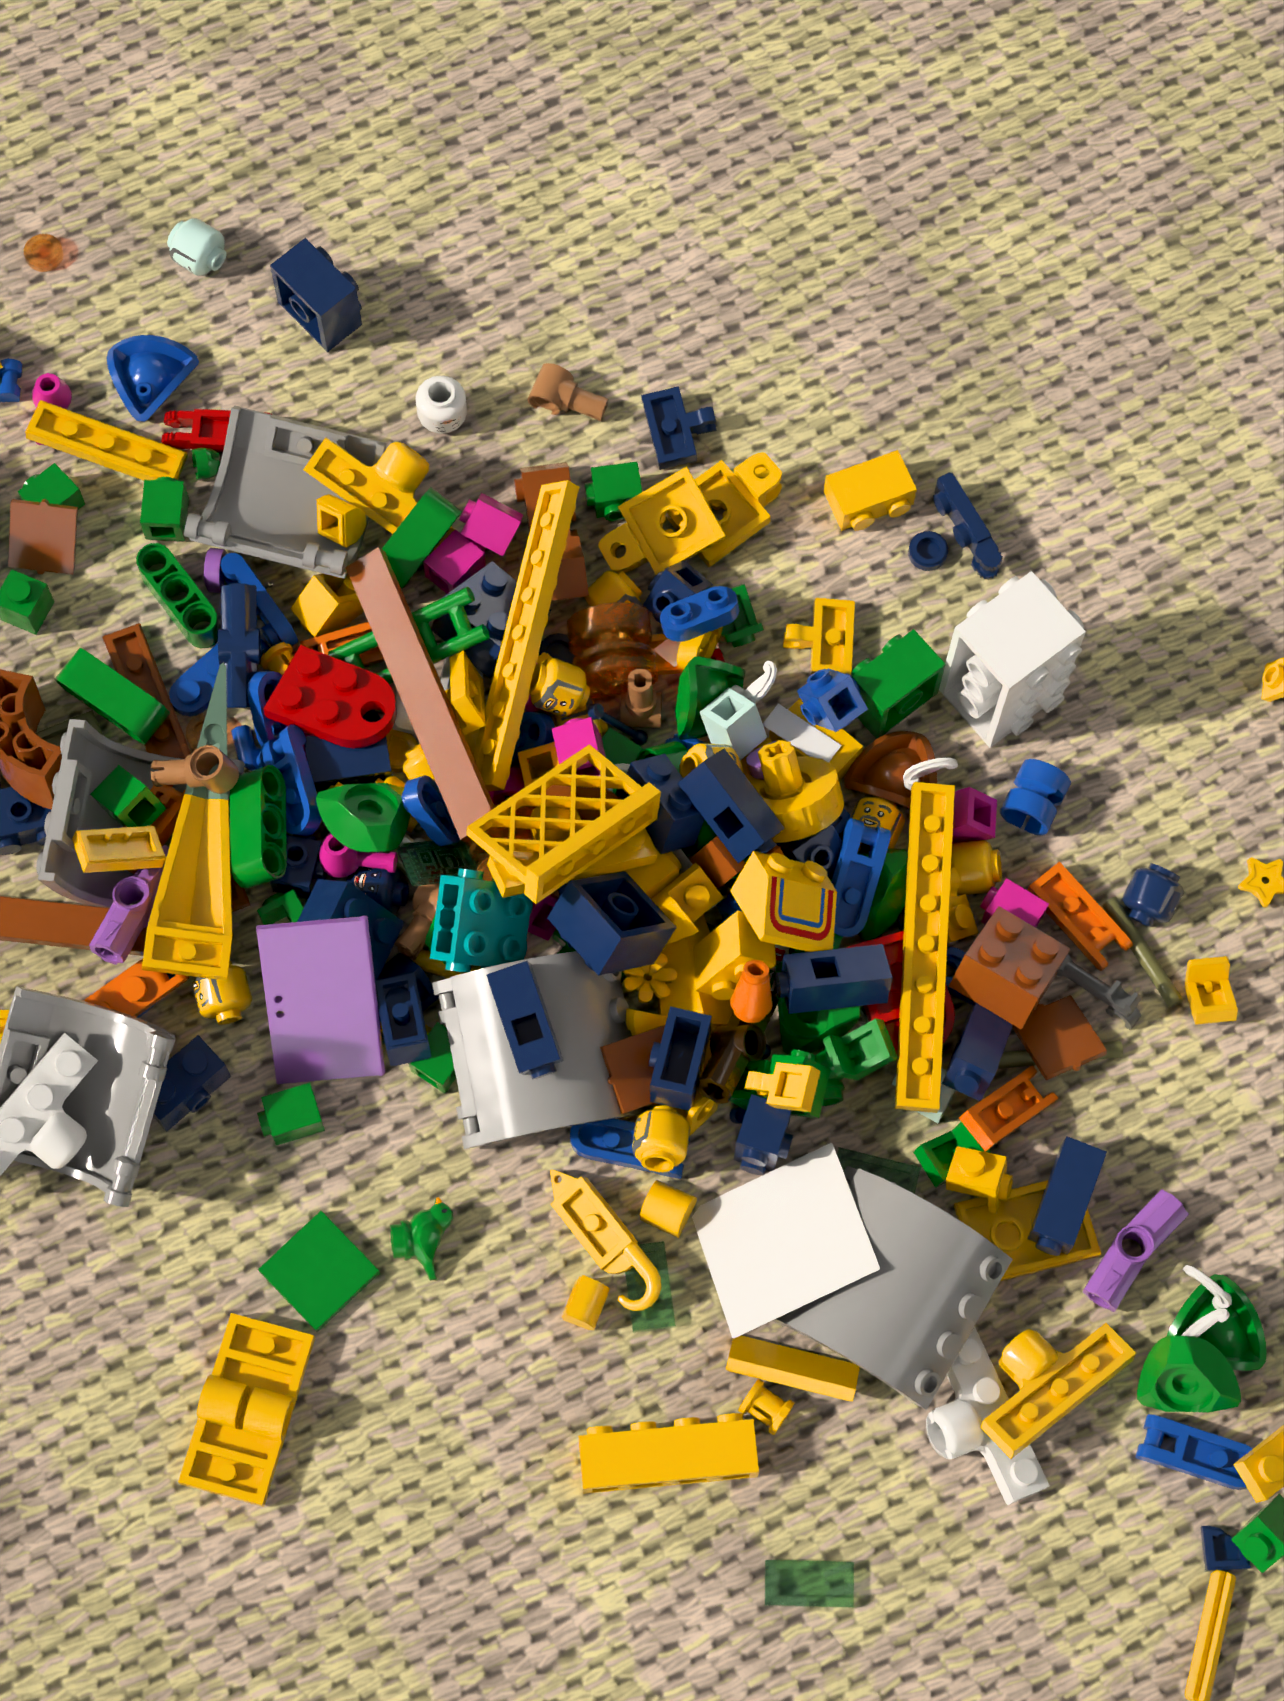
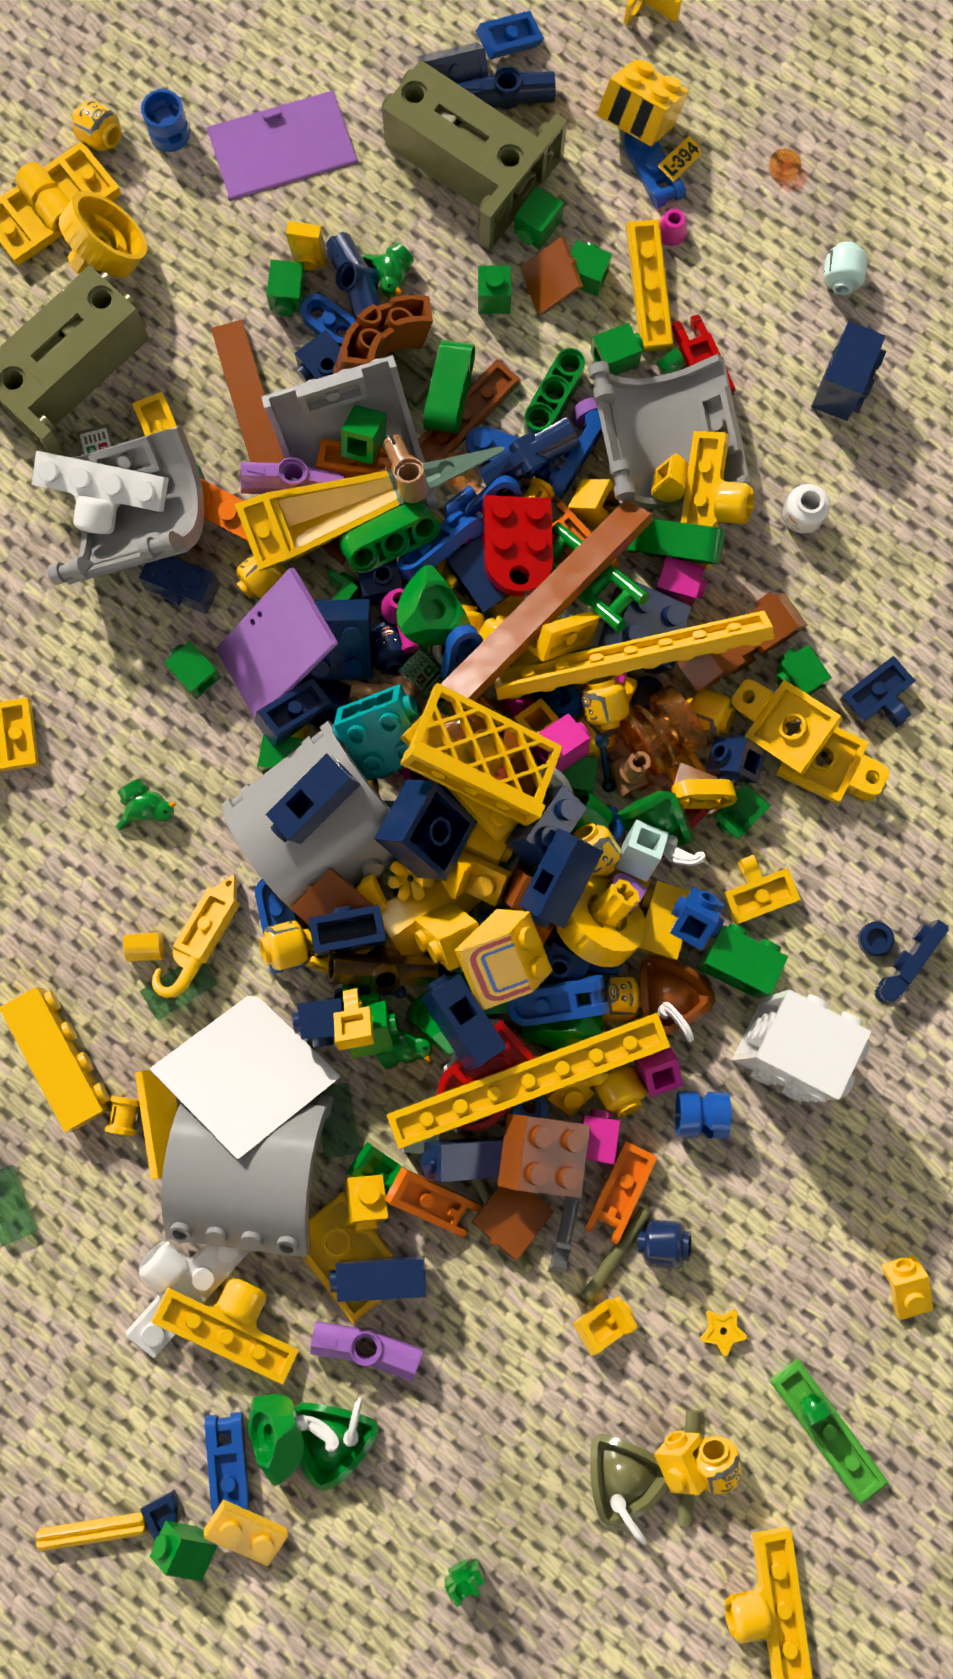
camera: 65 degrees right, 10 degrees up
(118, 849) = (317, 444): yellow plate -> none
(148, 371) = (723, 285): blue hat -> none
(319, 1271) = (88, 744): green tile -> none
(490, 523) = (723, 590): dark pink brick -> none
(557, 391) = (864, 592): medium nougat pin -> none
(667, 1208) = (244, 974): yellow brick -> none
(699, 613) = (721, 782): blue plate -> none
(752, 994) = (418, 963): orange cone -> none
(801, 734) = (662, 903): white sticker -> none
(860, 1050) = (419, 1066): green bracket -> none
(870, 491) = (902, 871): yellow brick -> none

